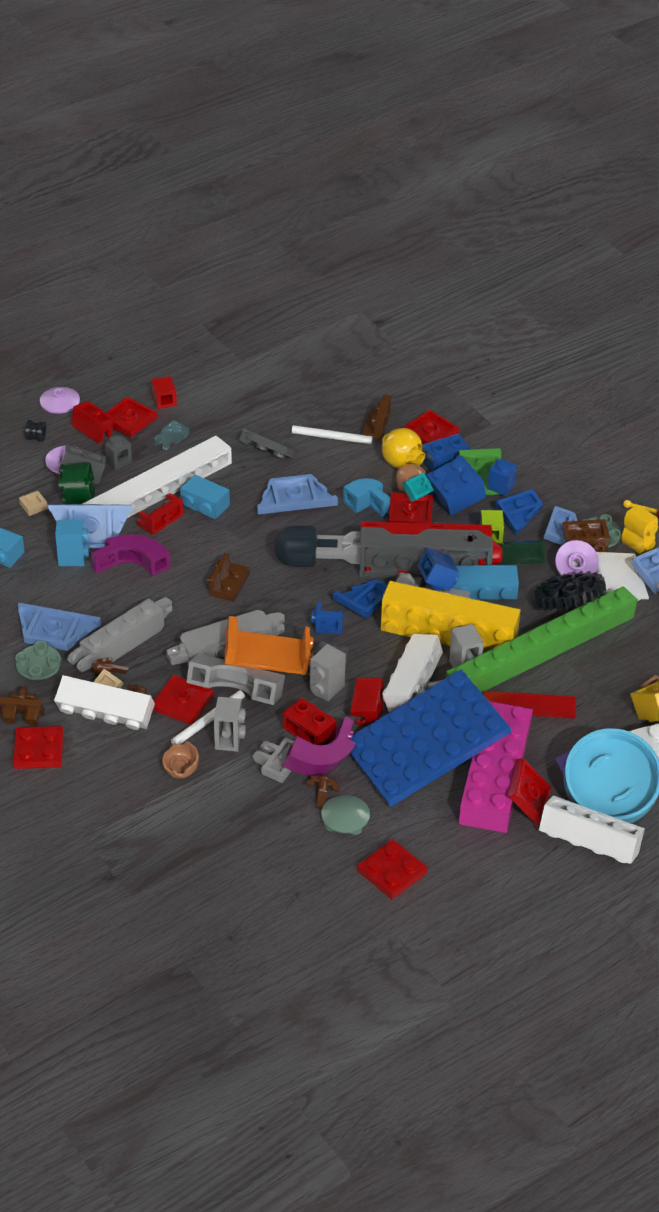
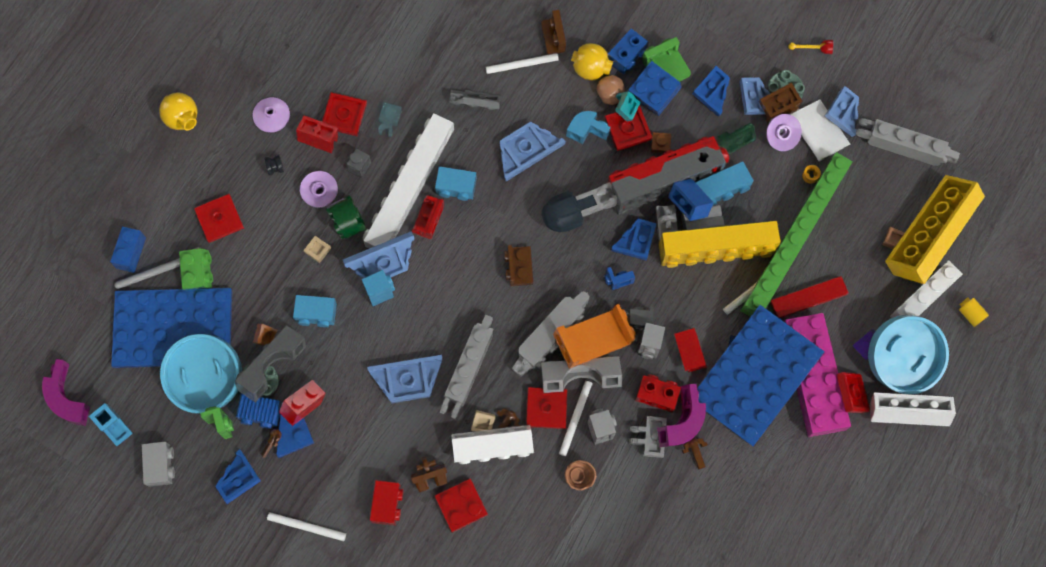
camera: 25 degrees left, 30 degrees up
(38, 661) = (414, 419): sand green dish -> none
(74, 455) = (336, 189): dark grey hinge -> none
(103, 663) = (470, 407): reddish brown piece -> none
(132, 549) = (430, 266): magenta arch -> none
(163, 392) = (359, 73): red brick -> none
(345, 814) = (724, 468): sand green dish -> none
(392, 869) = (781, 504): red plate -> none
(413, 670) = (712, 308): white brick -> none
(432, 427) = (601, 26): red plate -> none
(464, 645) = (745, 271): light grey brick -> none
(494, 518) = (702, 121): lime brick -> none
(502, 477) = (689, 65): blue brick -> none
(570, 590) = (782, 174): black gear -> none
(639, 529) = (822, 81): yellow brick -> none

